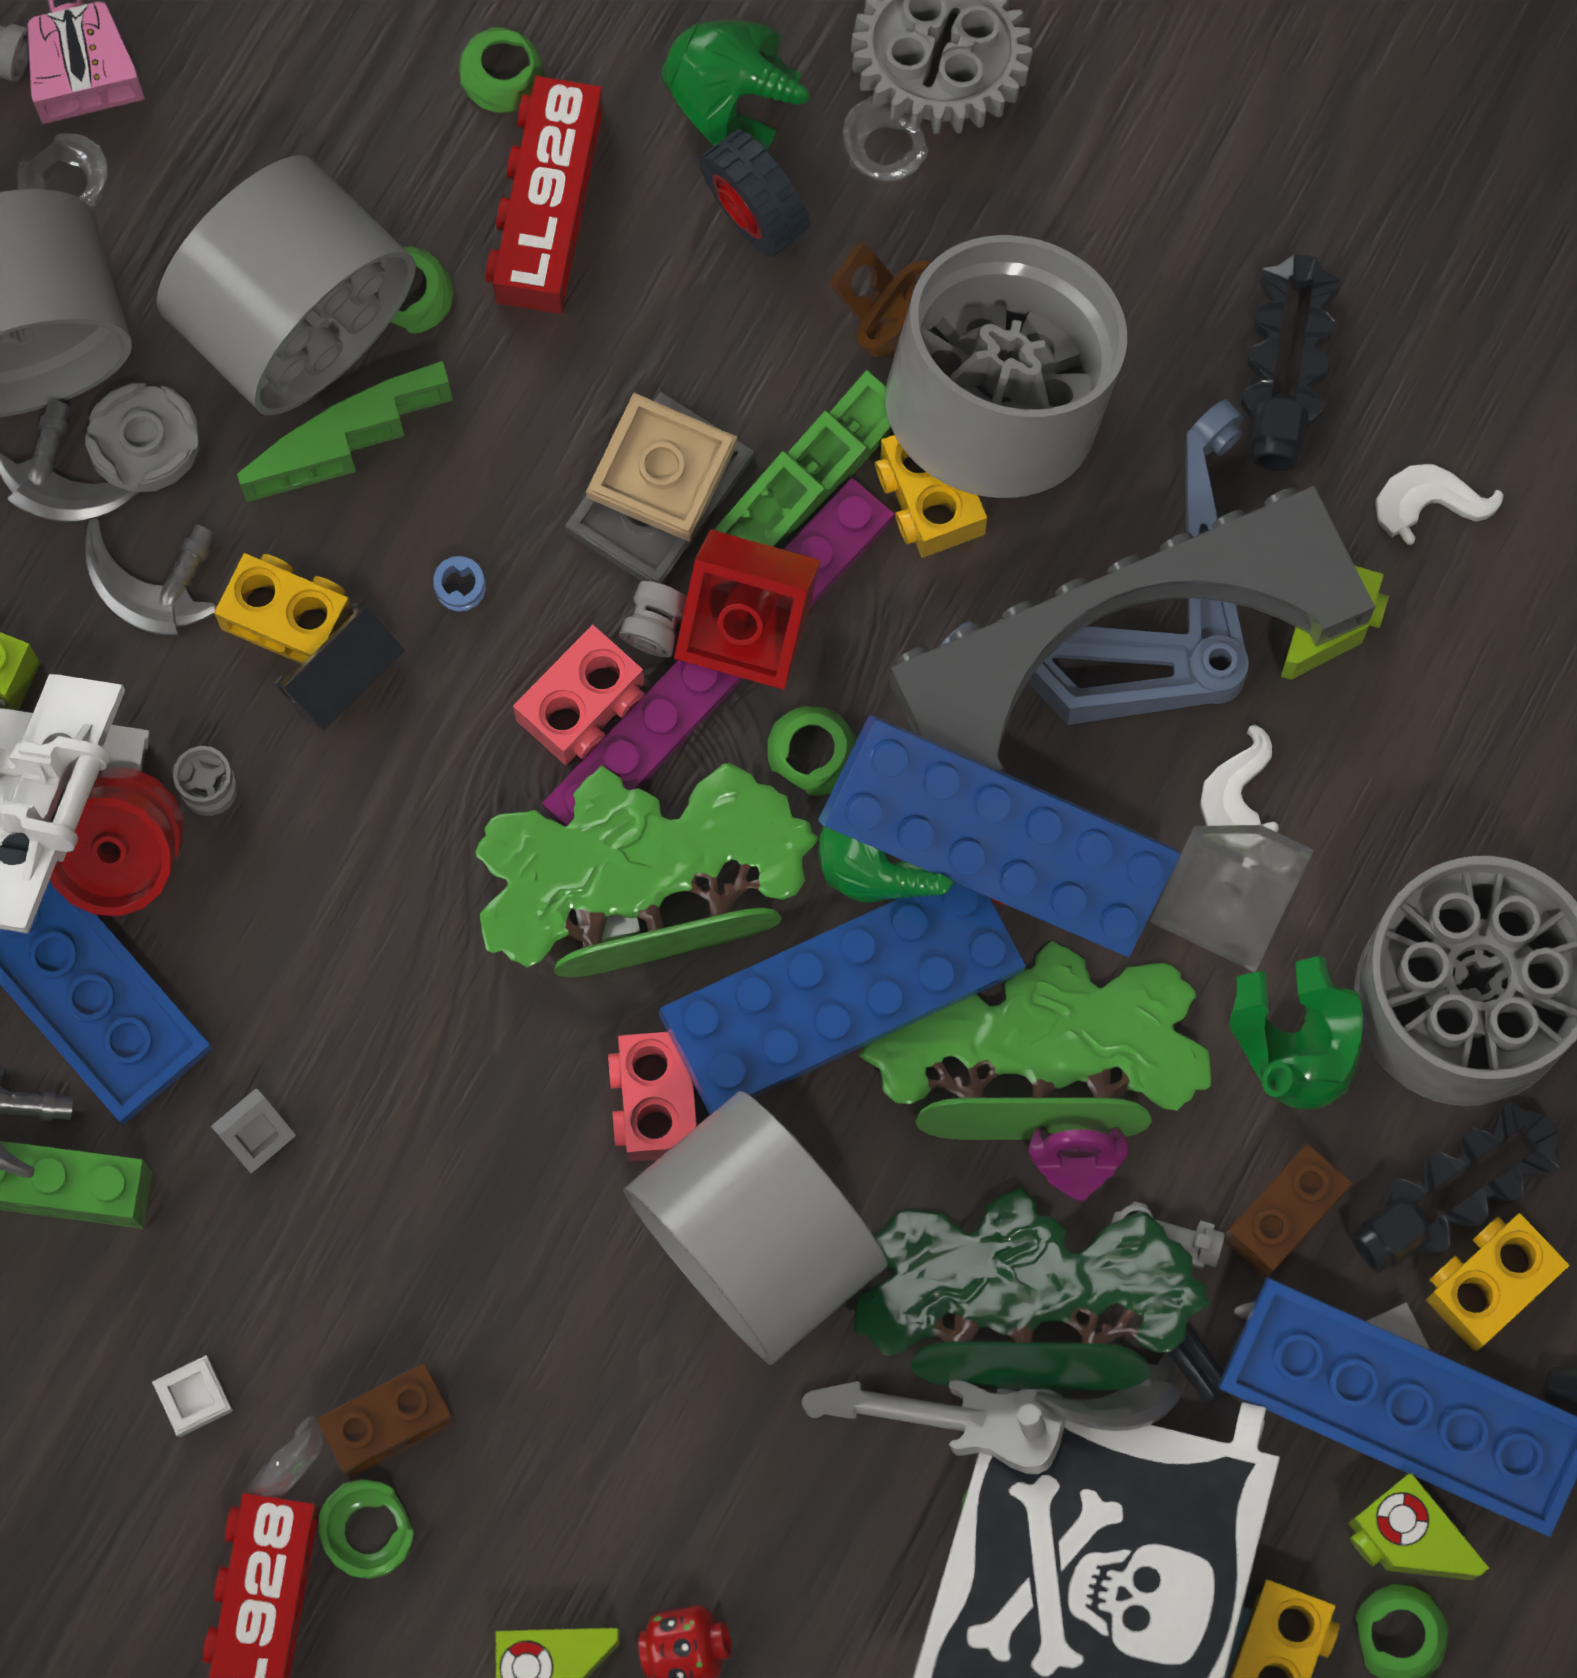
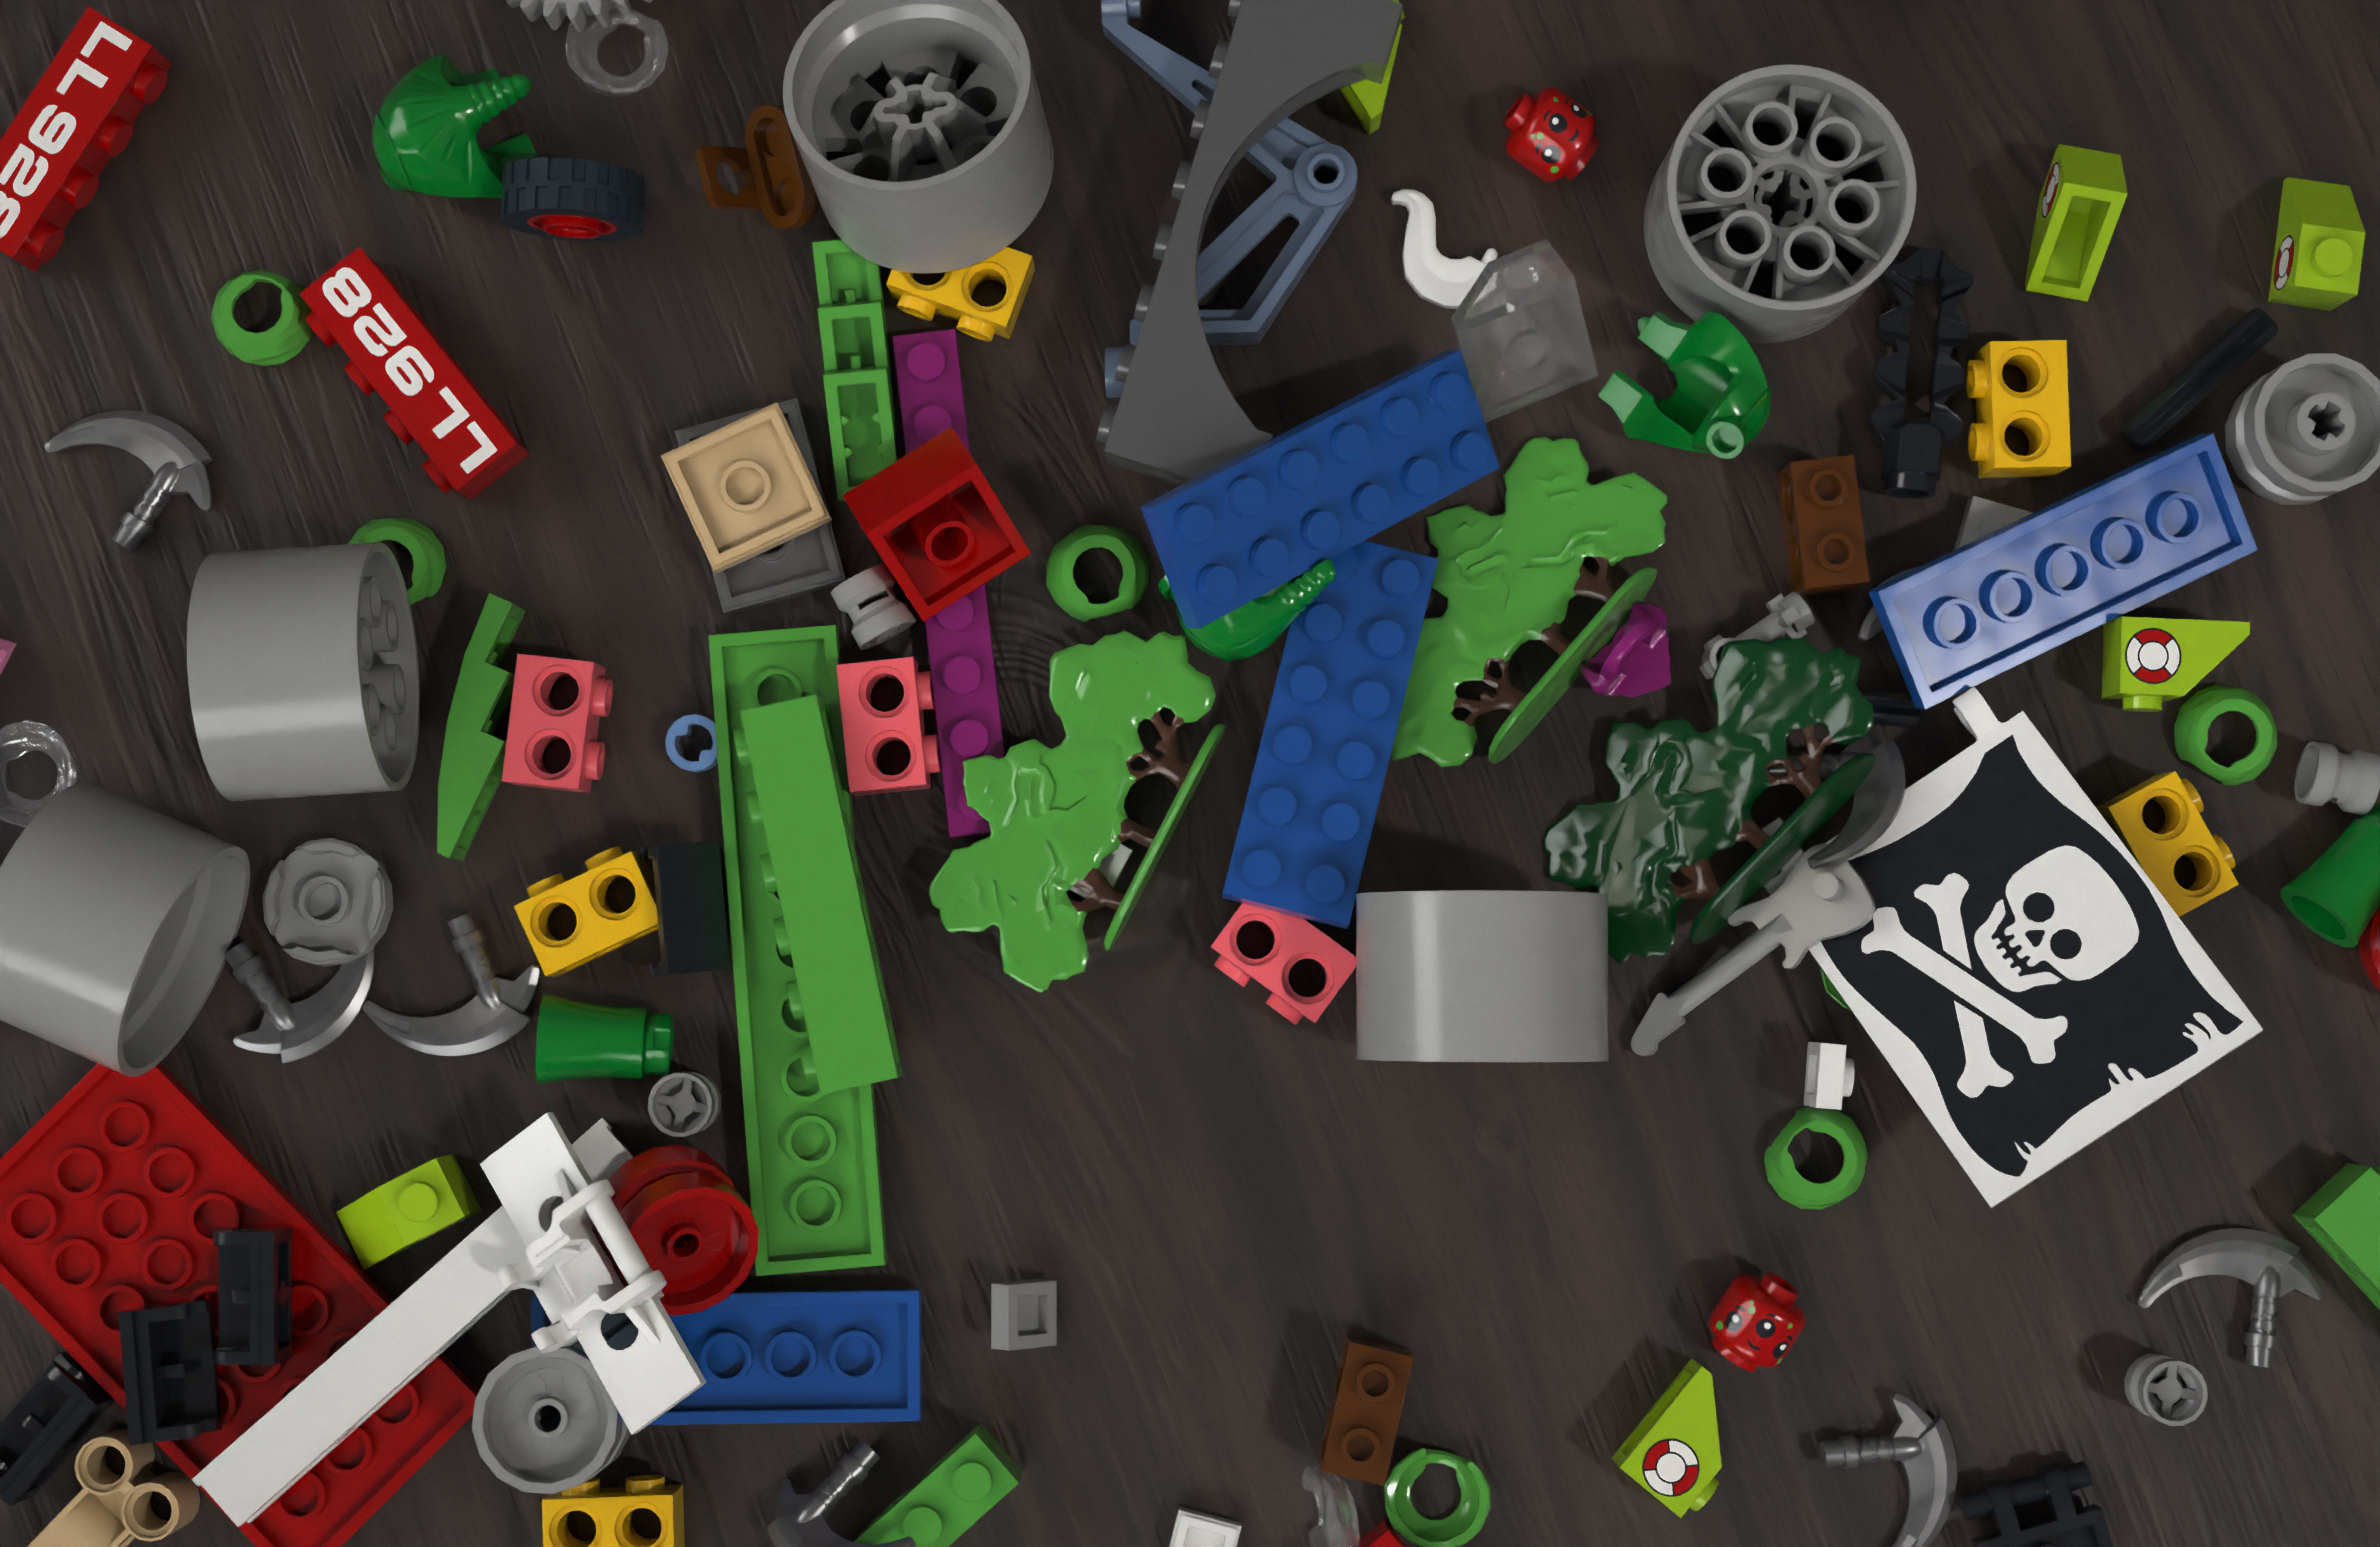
camera: 50 degrees left, 10 degrees up
(200, 688) = (600, 1041): none -> green plant
(358, 78) = (163, 446): none -> flat silver piece
(371, 771) = (806, 1151): none -> bright green plate
(381, 469) = (538, 723): none -> coral brick
(425, 745) = (819, 893): none -> bright green brick
(846, 1628) = (1796, 1189): none -> bright green piece
(903, 1550) = (1827, 1075): none -> white plate
(1389, 793) = (1550, 134): none -> red head

